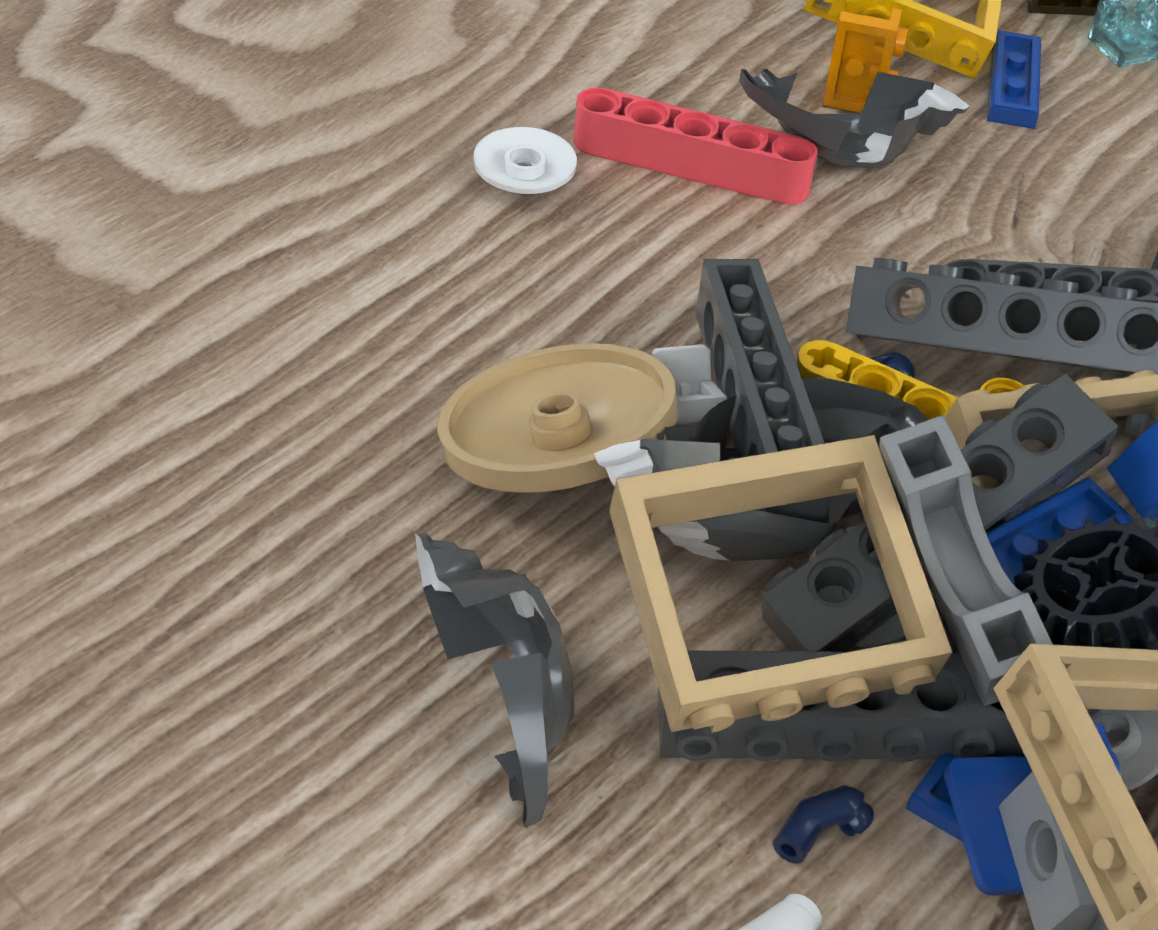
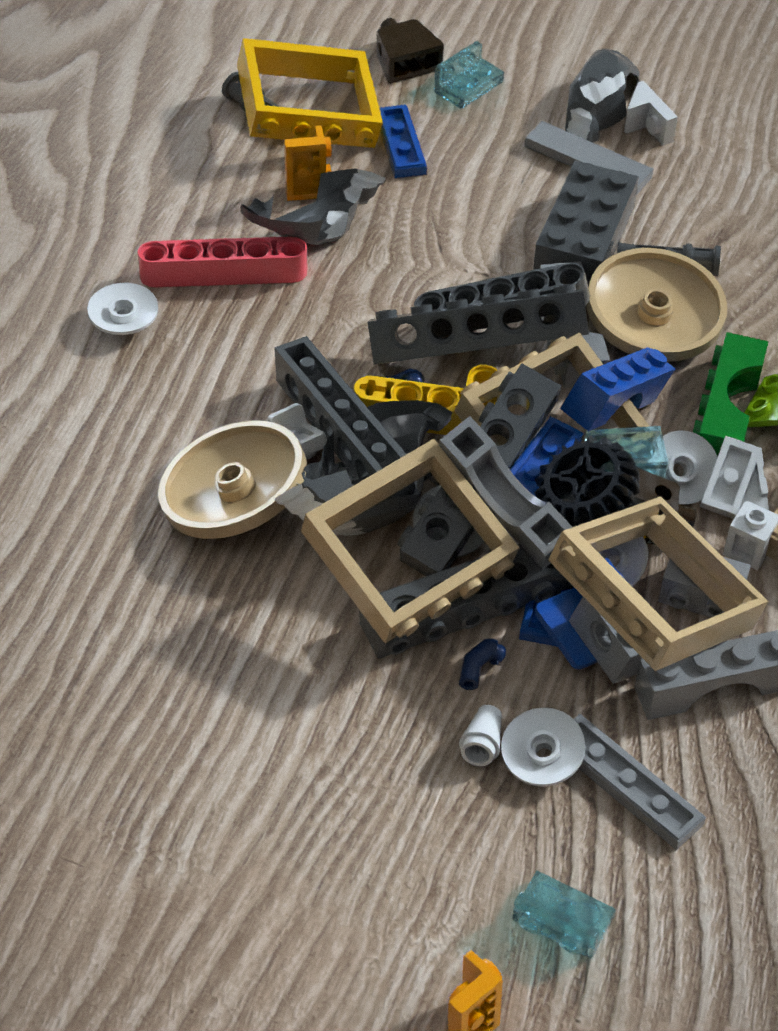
camera: 20 degrees left, 5 degrees up
(499, 607) = (249, 608): dark grey animal -> none

